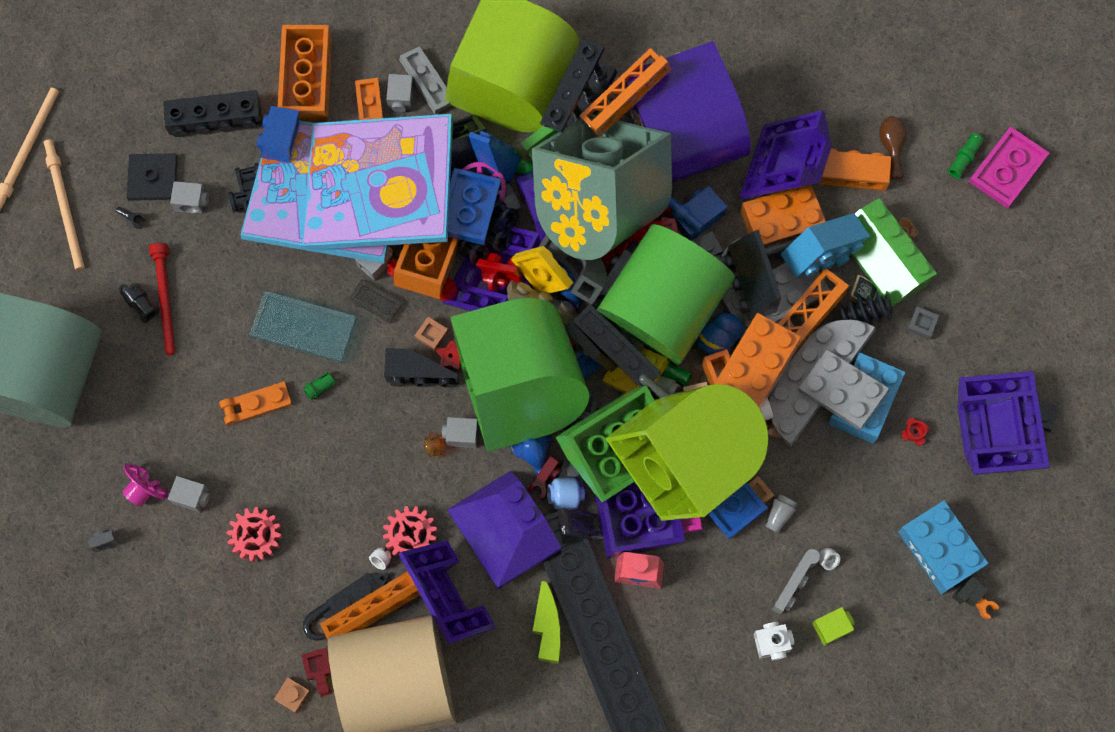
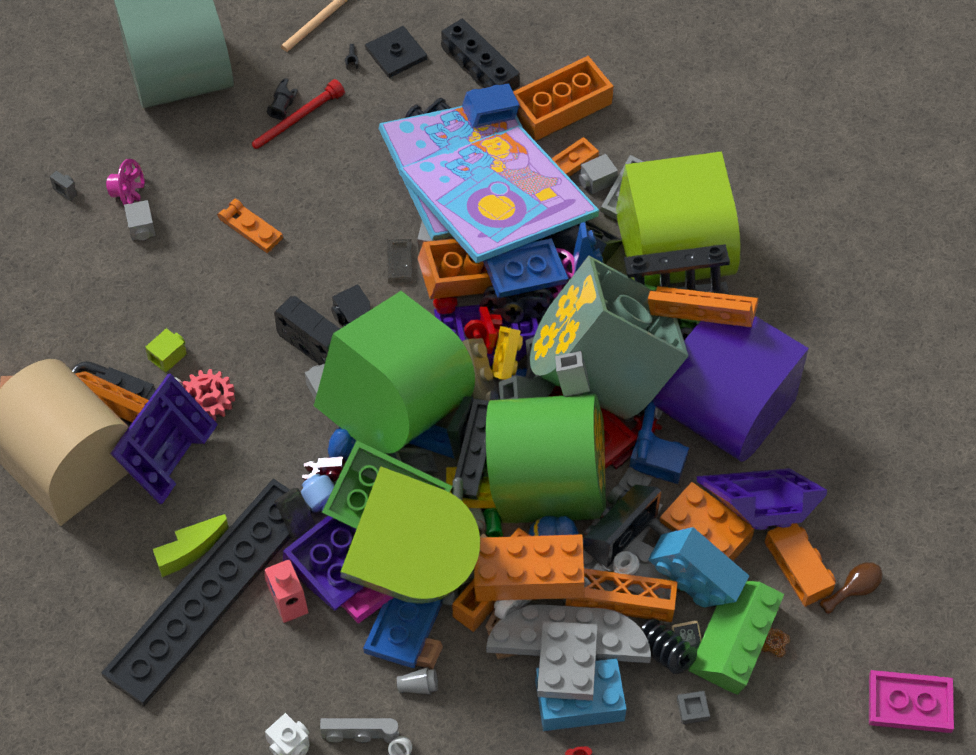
camera: 55 degrees right, 15 degrees down
(189, 197) = (394, 82): light grey brick -> none
(246, 540) = (135, 284): coral gear -> none
(303, 326) = (339, 221): clear light blue plate -> none
(318, 386) = (295, 260): green pin -> none
(341, 543) = (166, 350): none -> lime brick
(410, 414) = (305, 328): none -> black axle
(434, 445) = (296, 370): clear orange plate -> none
(505, 529) = (254, 464): dark purple slope -> none
(632, 230) = (572, 373): none -> light grey brick
(793, 296) = (626, 563): none -> white plate
(965, 156) = (892, 655): green pin -> none

